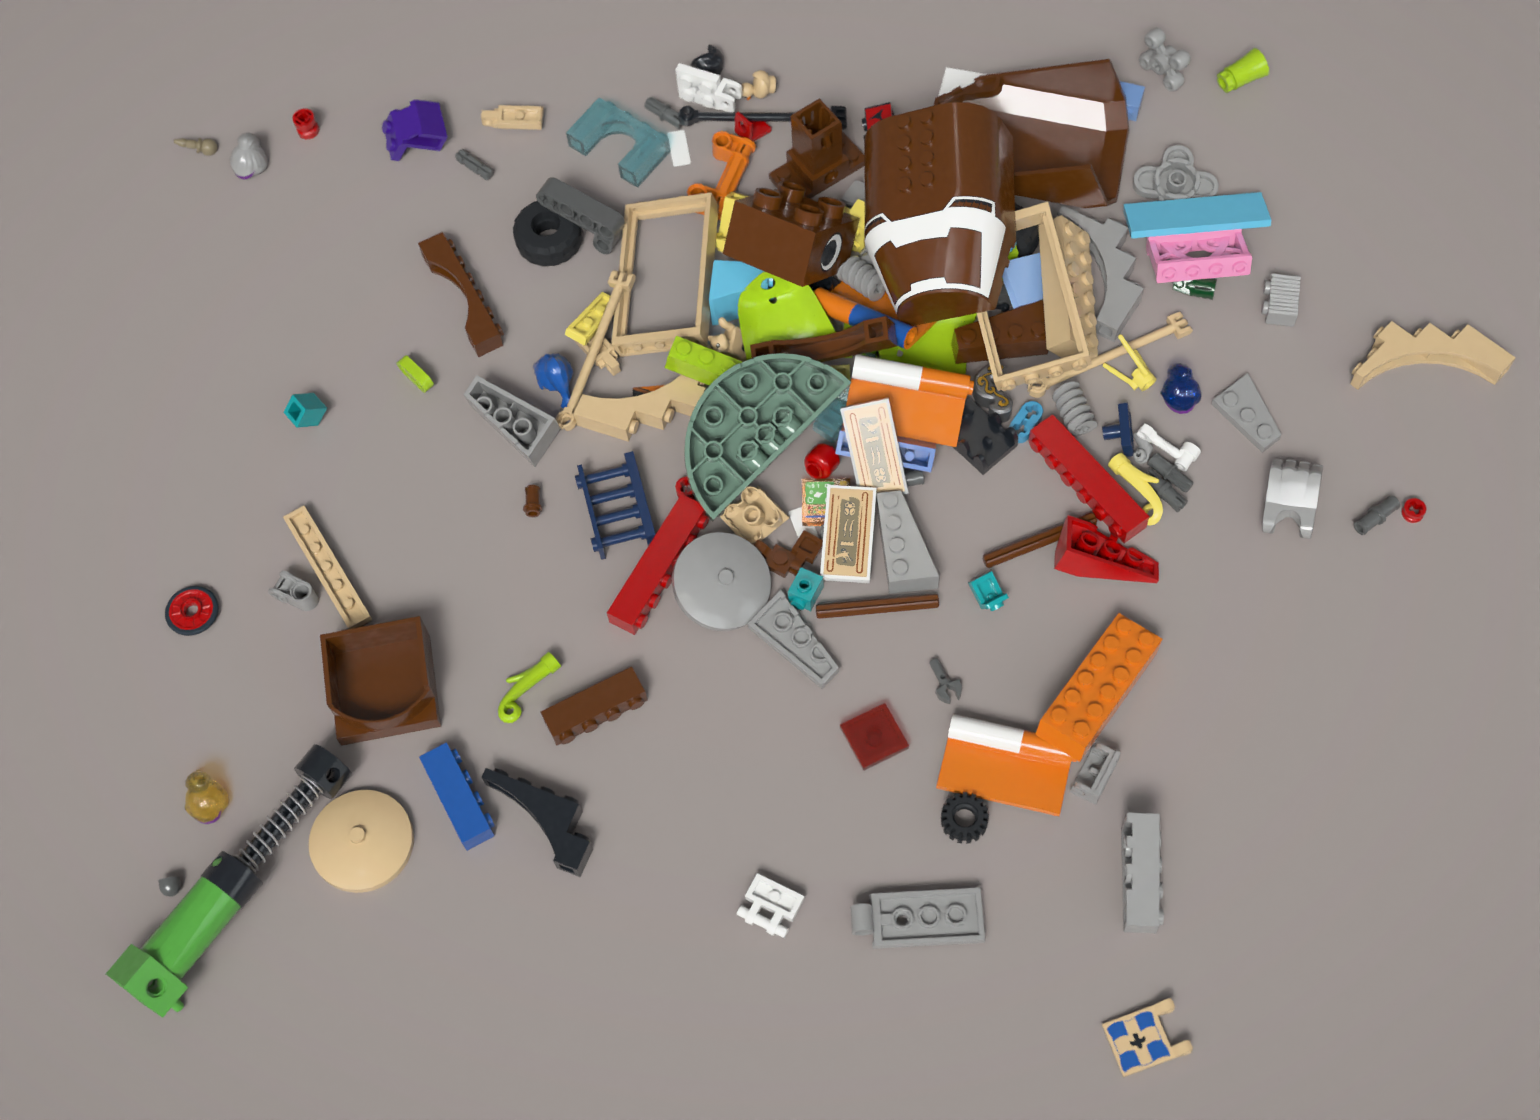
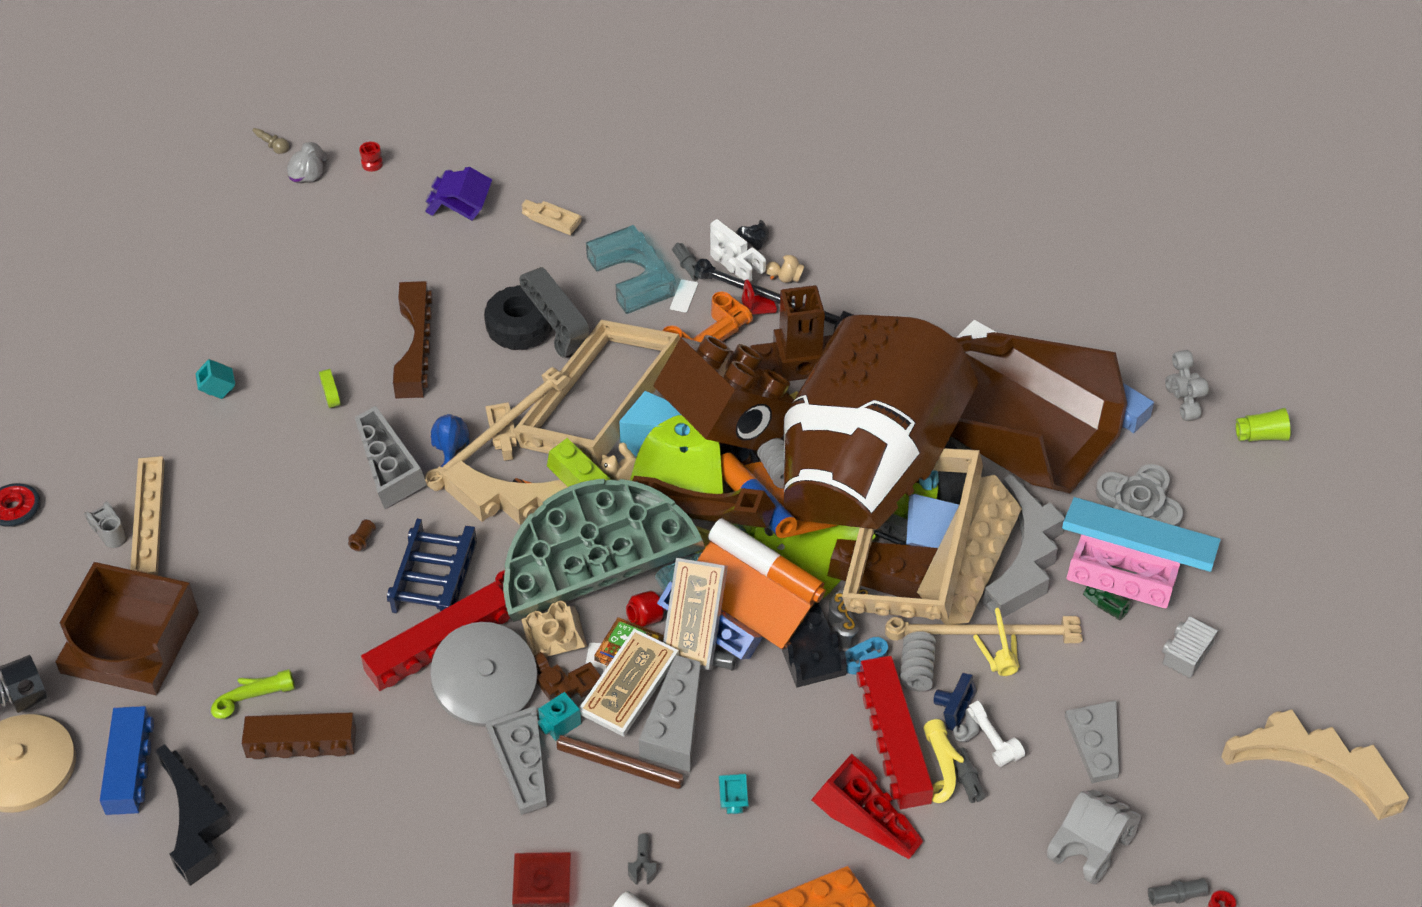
camera: 20 degrees right, 15 degrees down
(474, 164) = (493, 241): dark grey axle -> none
(587, 323) = (498, 405): light yellow tile -> none
(1029, 544) = (801, 768): reddish brown axle -> none
(1170, 472) = (983, 761): dark grey axle -> none
(1180, 389) = (1037, 688): clear blue hair -> none

